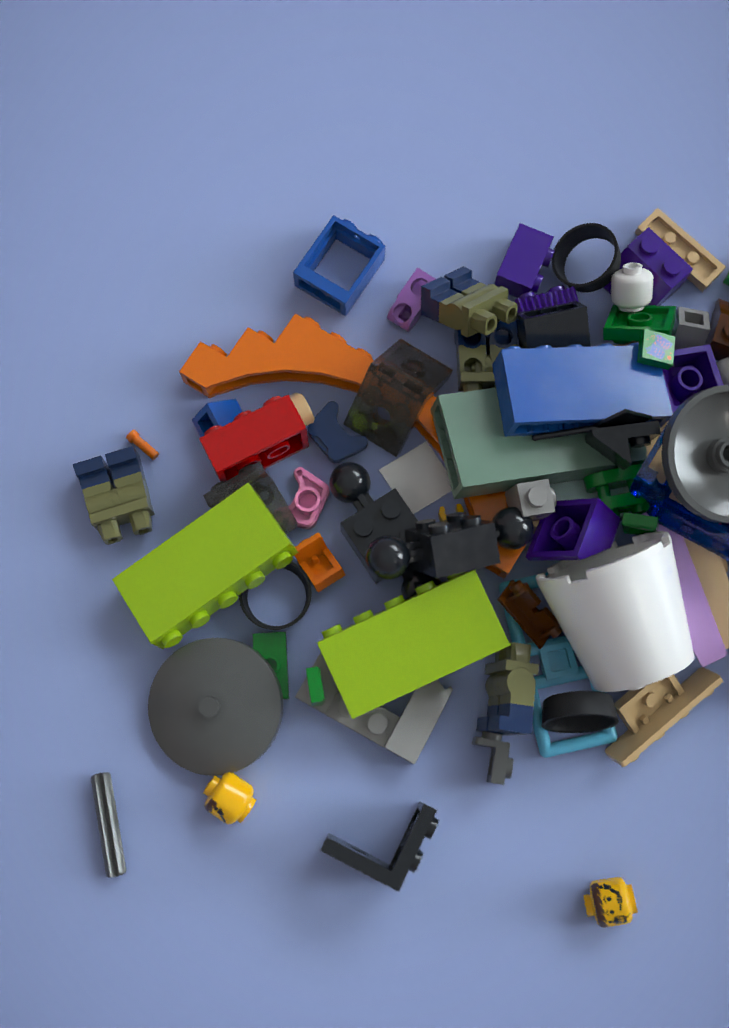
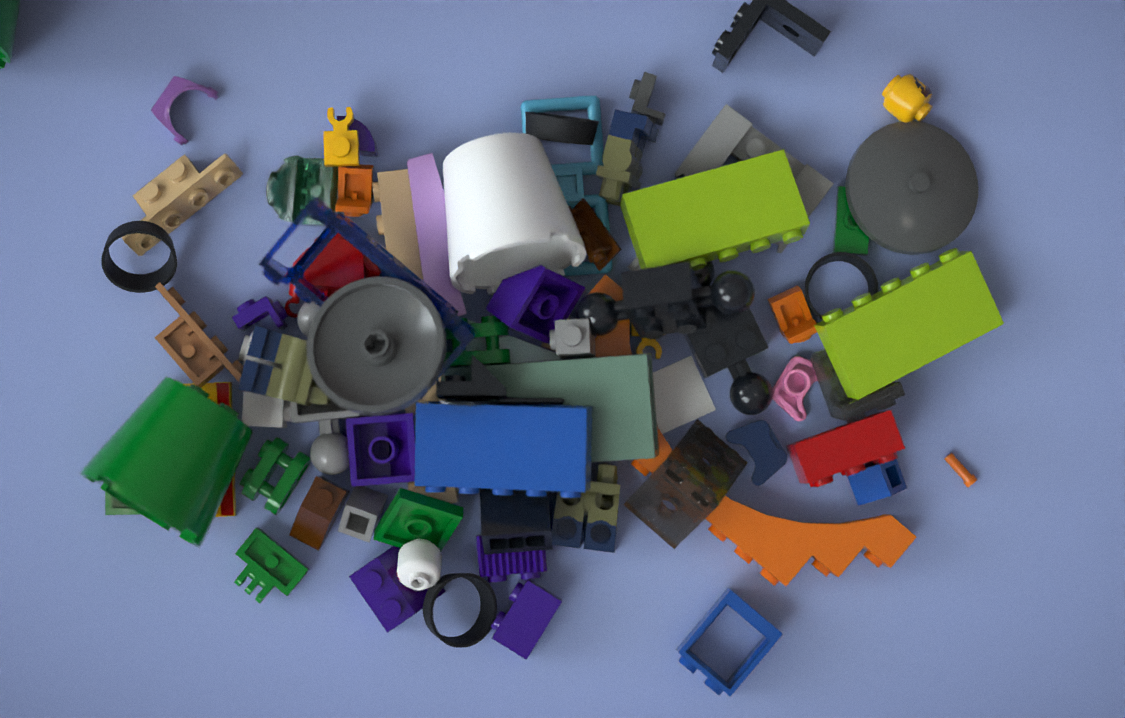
camera: 170 degrees left, 10 degrees up
(108, 824) = (1024, 92): dark grey axle -> none
(116, 506) = (992, 418): olive hips -> none
(303, 408) = (794, 477): tan tile -> none
(315, 686) = (814, 187): green tile -> none
(407, 307) = (653, 590): medium lavender leg -> none
(466, 303) = (601, 569): olive hips -> none
(639, 524) = (466, 300): green tile -> none
(655, 710) = (482, 118): tan bracket -> none
(656, 349) = (418, 477): tile -> none
(704, 264) = (350, 611): tan plate -> none

